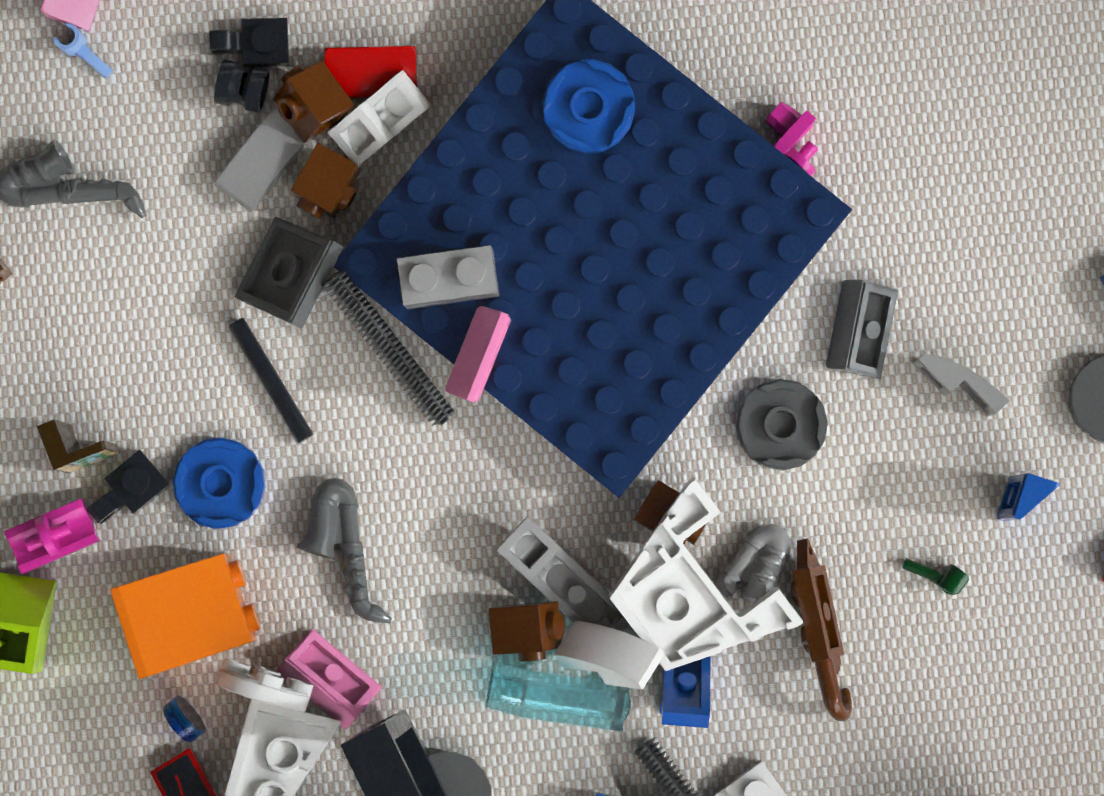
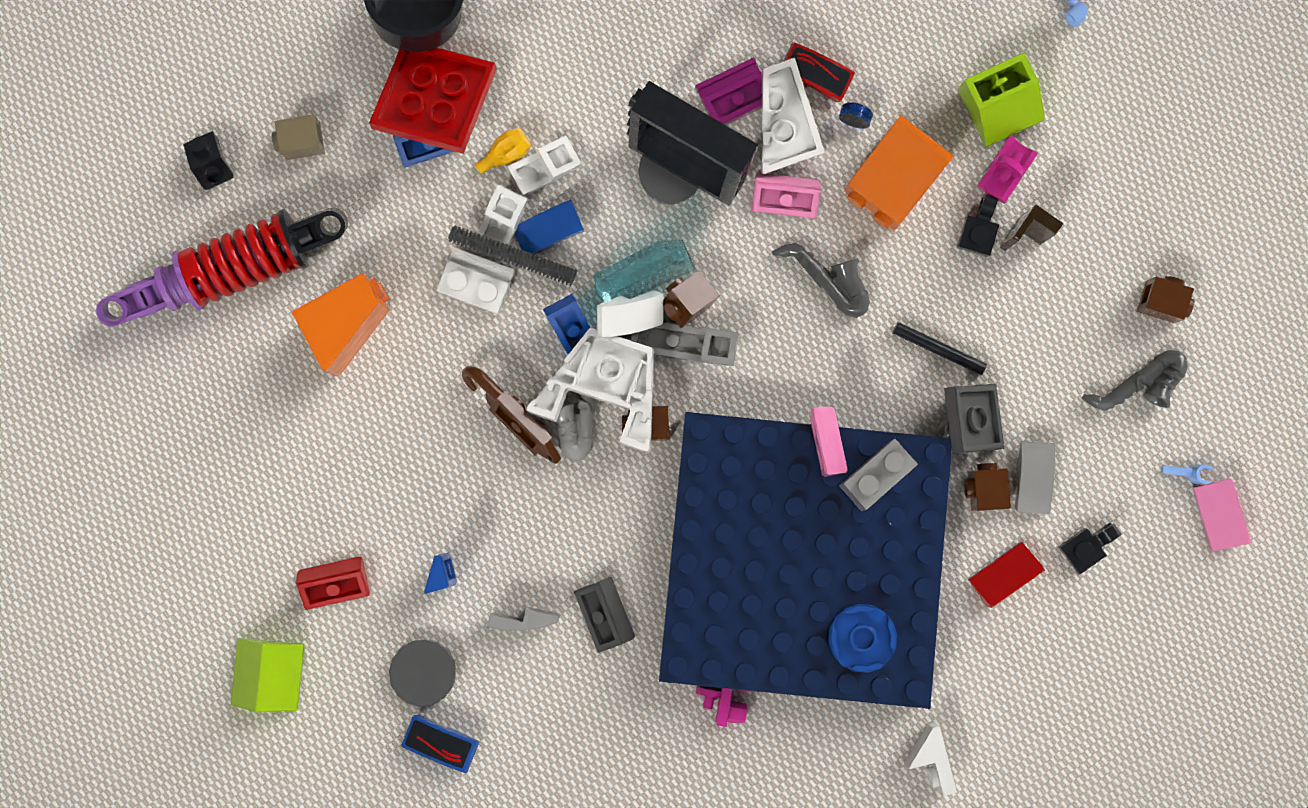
camera: 150 degrees right, 0 degrees up
(219, 483) = (928, 267): blue tile -> none
(241, 86) = (1078, 514): black wheel -> none
(264, 685) = (822, 163): white tile -> none
(311, 100) = (1031, 532): reddish brown brick -> none
(379, 118) = (981, 549): white slope -> none
(389, 346) = (883, 413): dark grey axle -> none
(781, 424) = (615, 523): dark grey tile -> none
(951, 581) = (452, 495): dark green hand -> none

